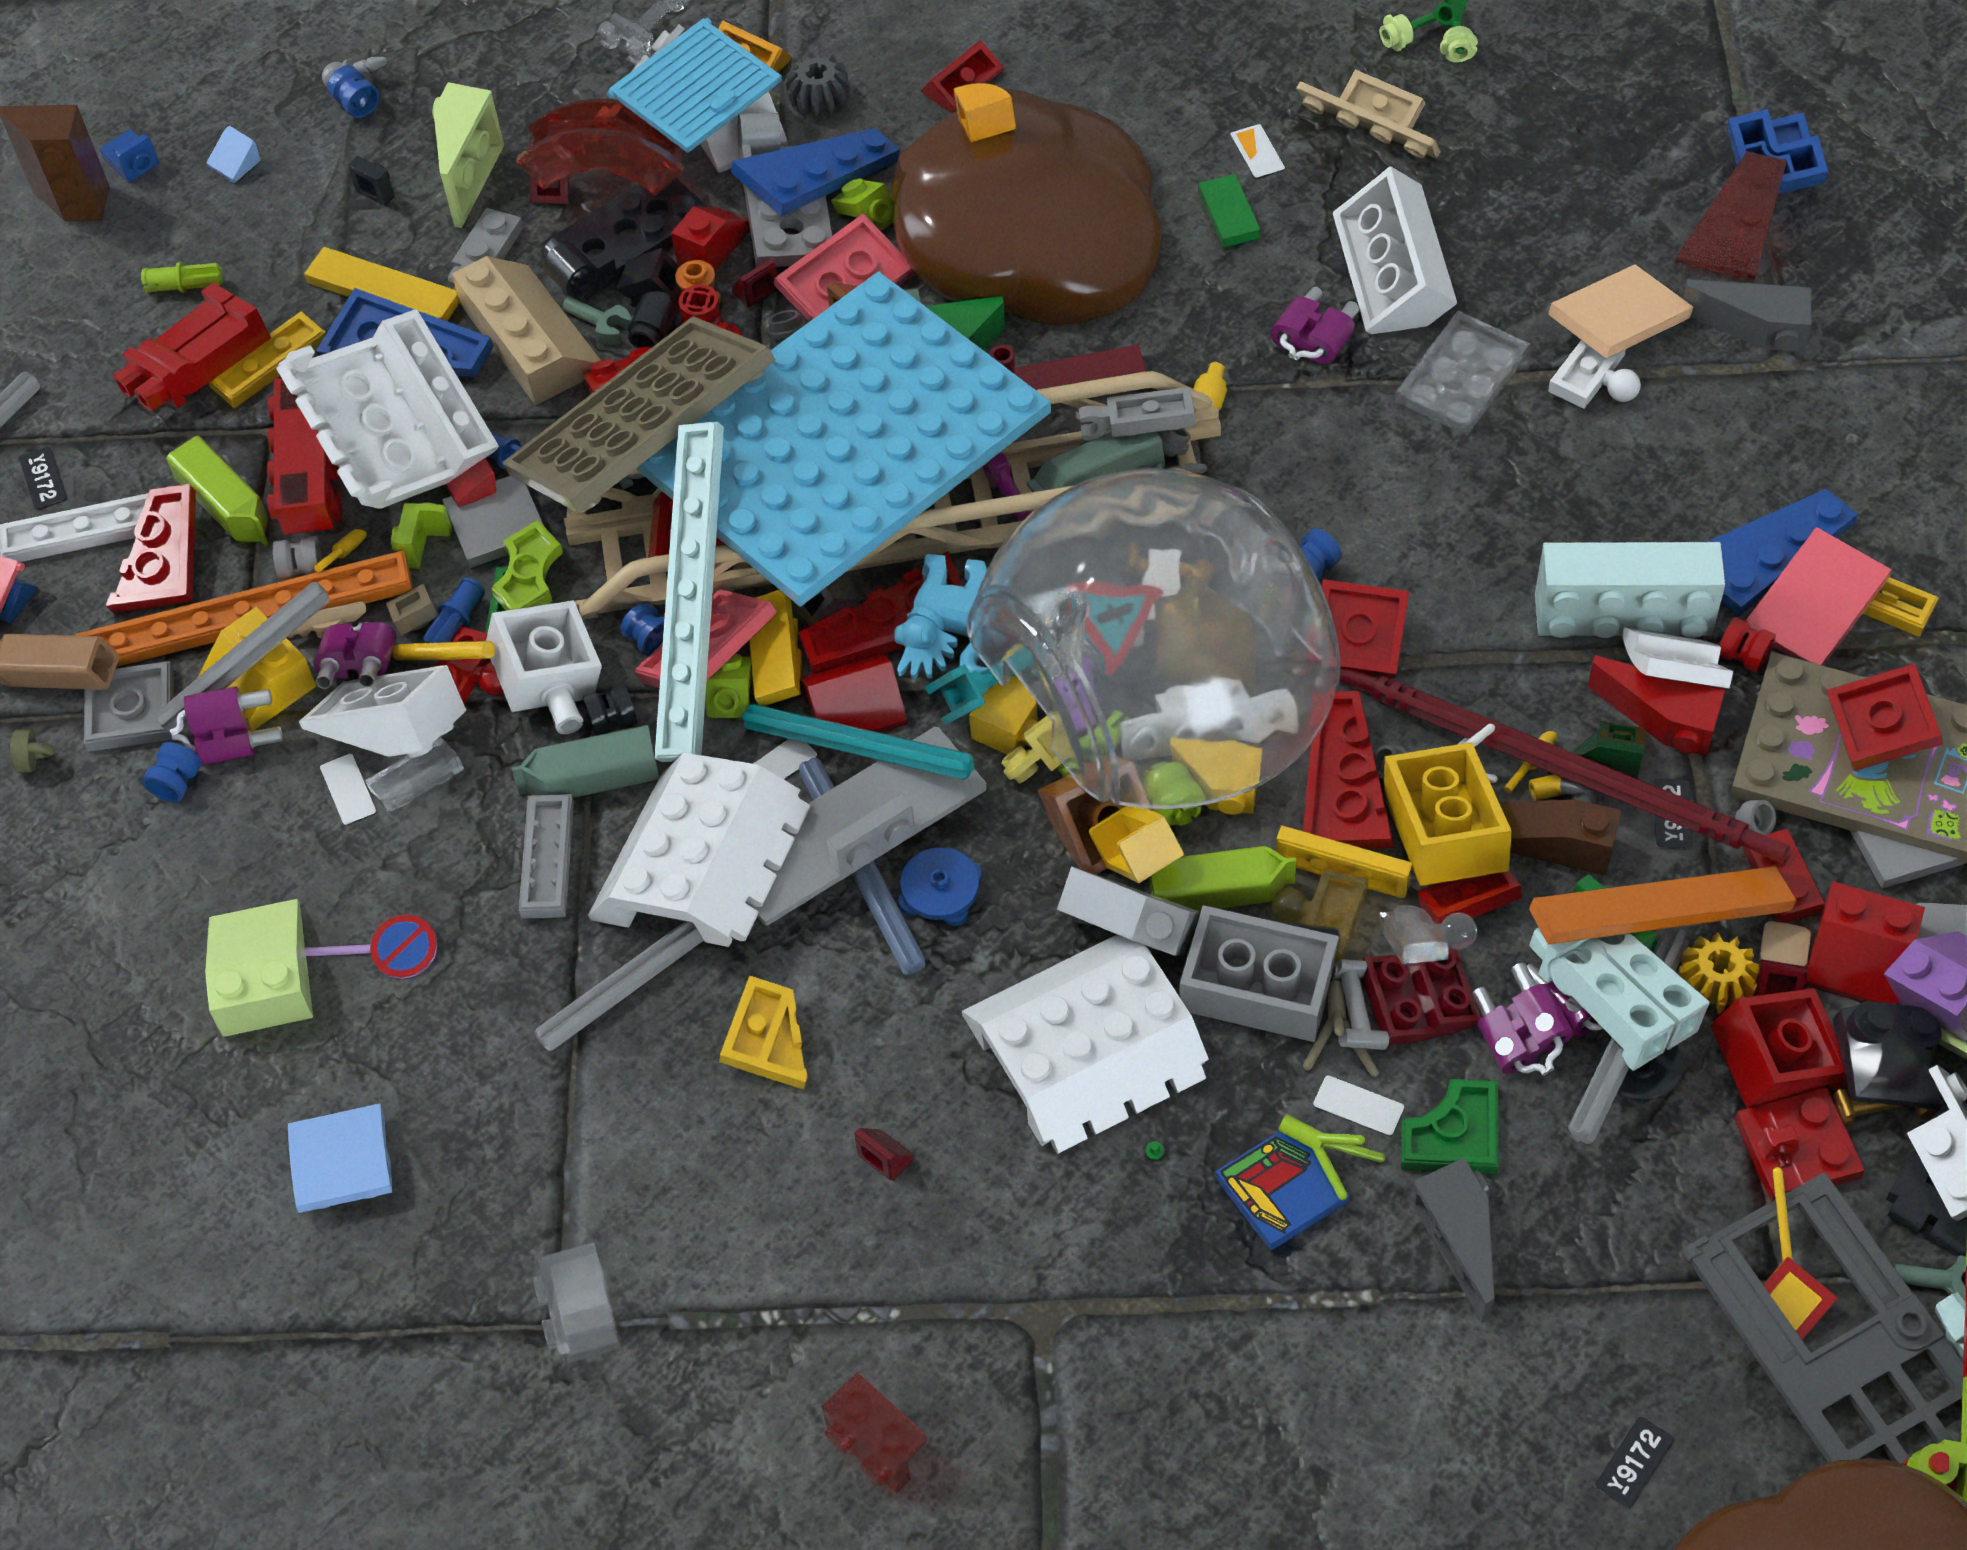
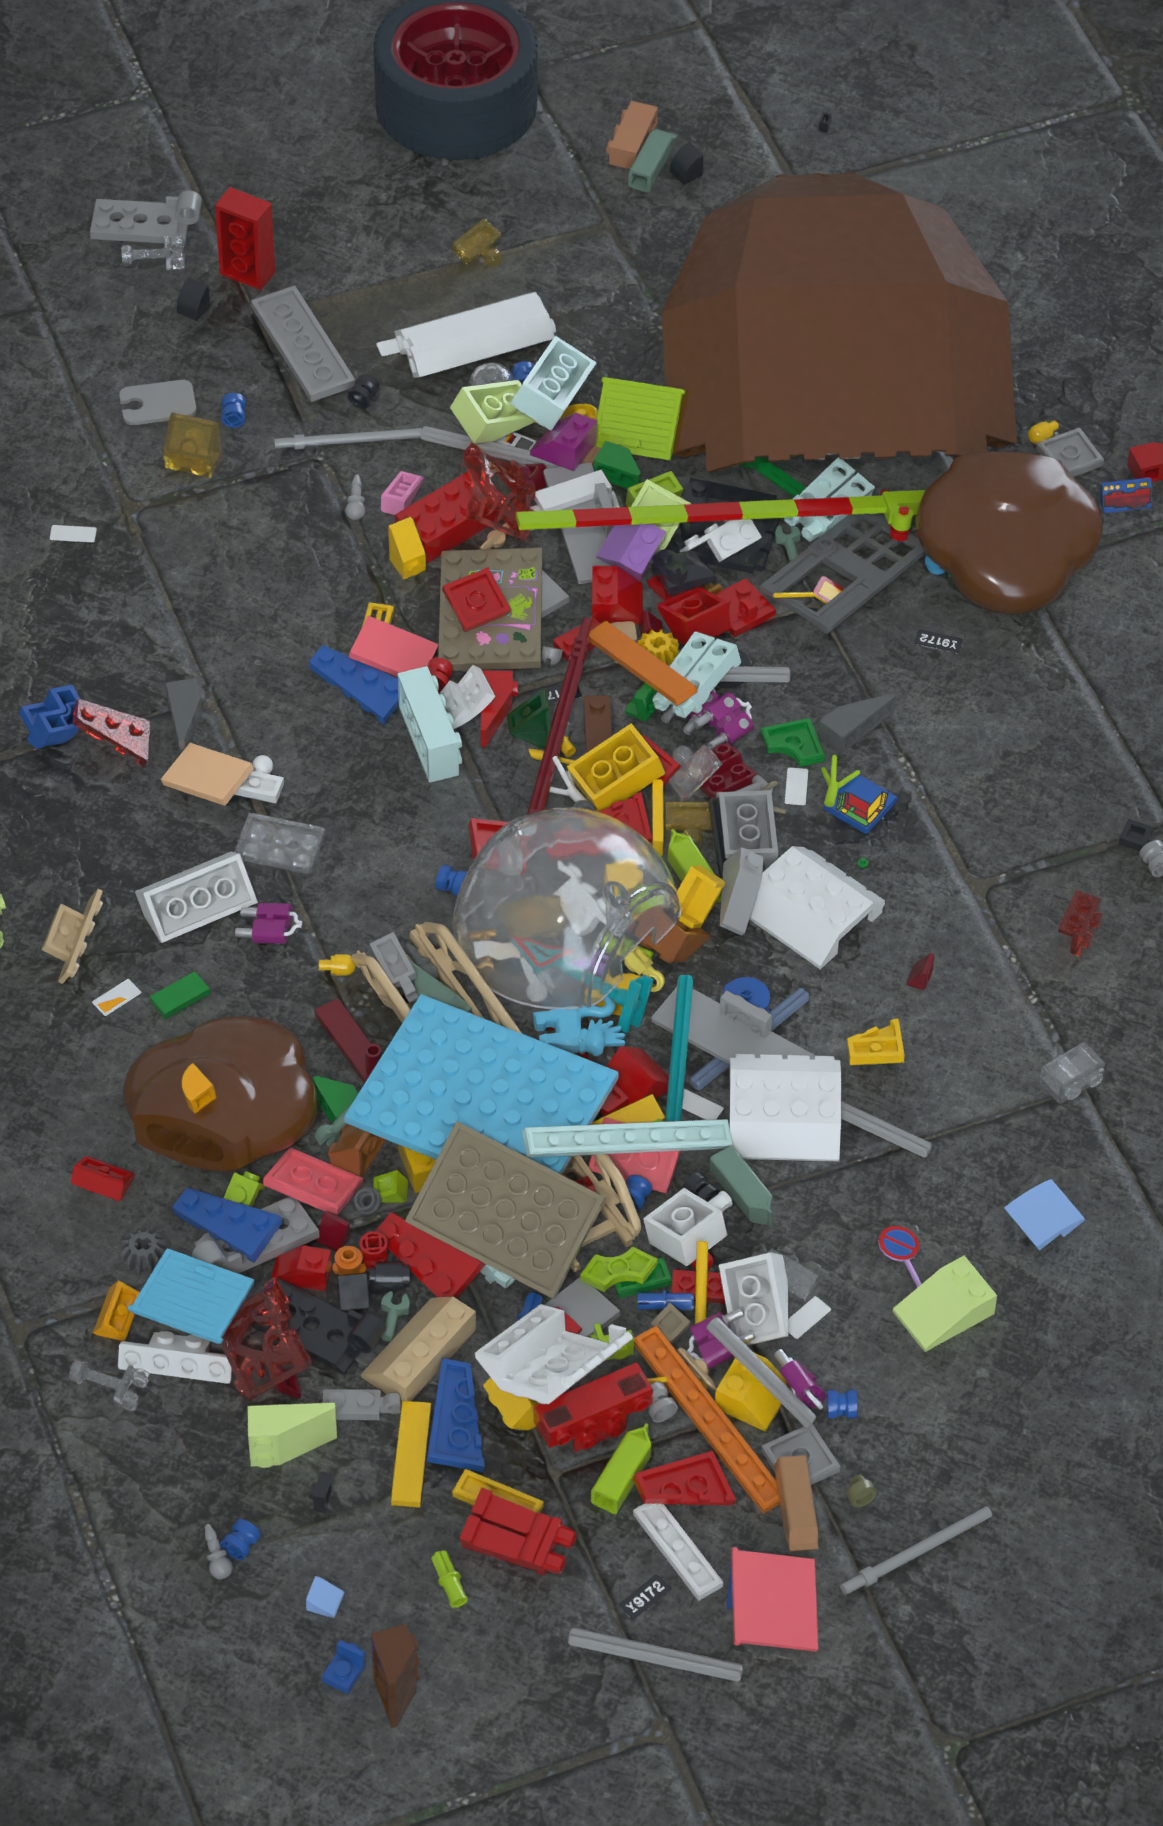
camera: 115 degrees left, 5 degrees down
(546, 856) = (812, 1189): light grey plate -> none

